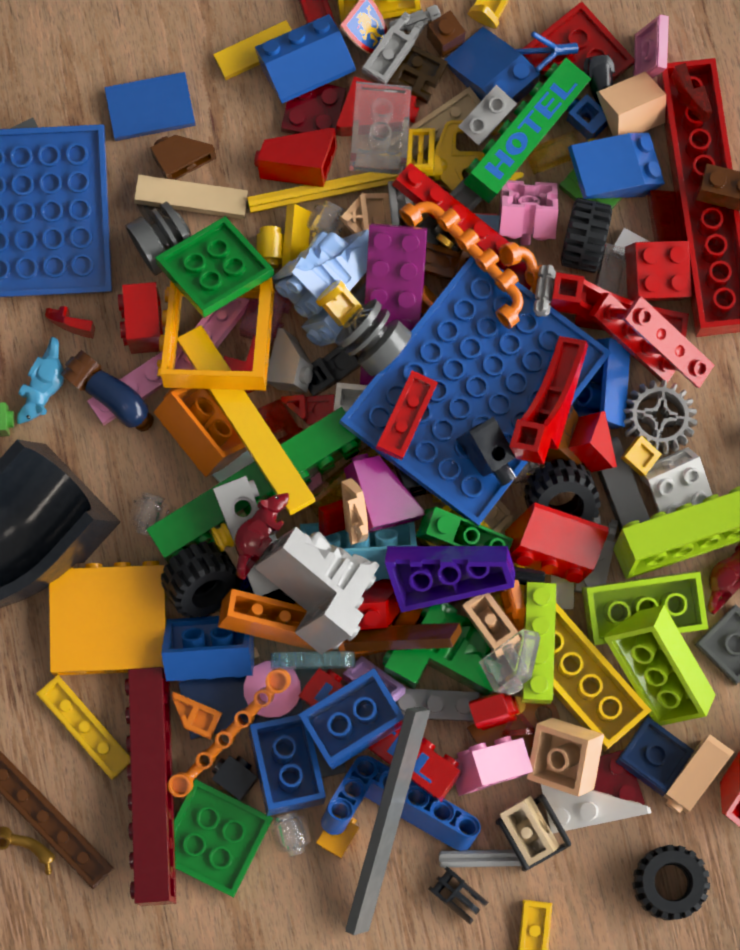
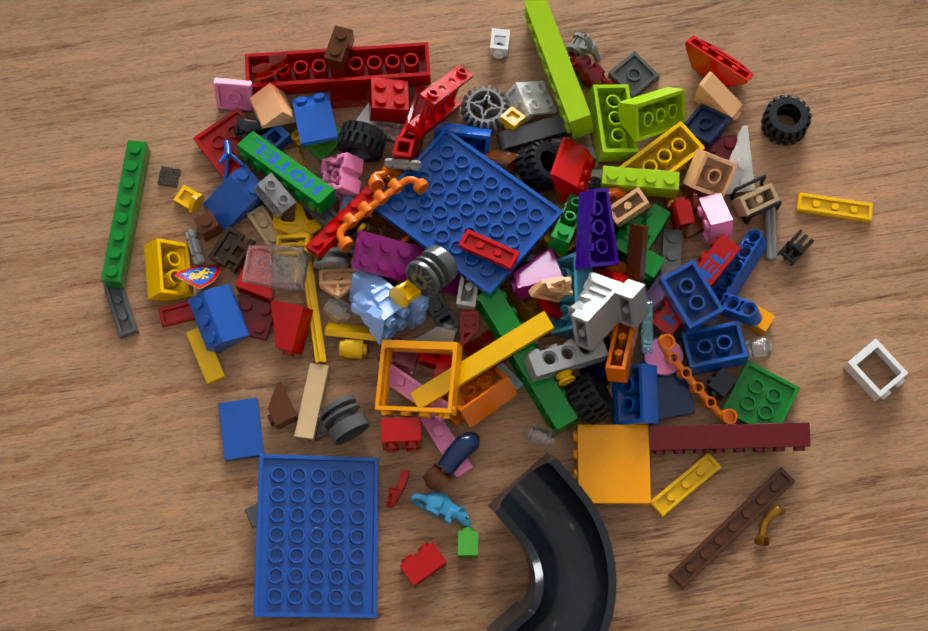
camera: 85 degrees left, 5 degrees down
(196, 716) = (681, 406): orange tile -> none
(214, 266) = (372, 377): green plate -> none
(253, 535) = (570, 349): dark red animal -> none
(387, 820) = (751, 280): tile -> none
(392, 50) = (218, 259): light grey hinge -> none
(482, 443) = (514, 199): black torso -> none
(512, 662) = (658, 193): clear slope -> none
(547, 415) = (484, 159): red arch -> none
(593, 443) = (503, 144): red slope -> none

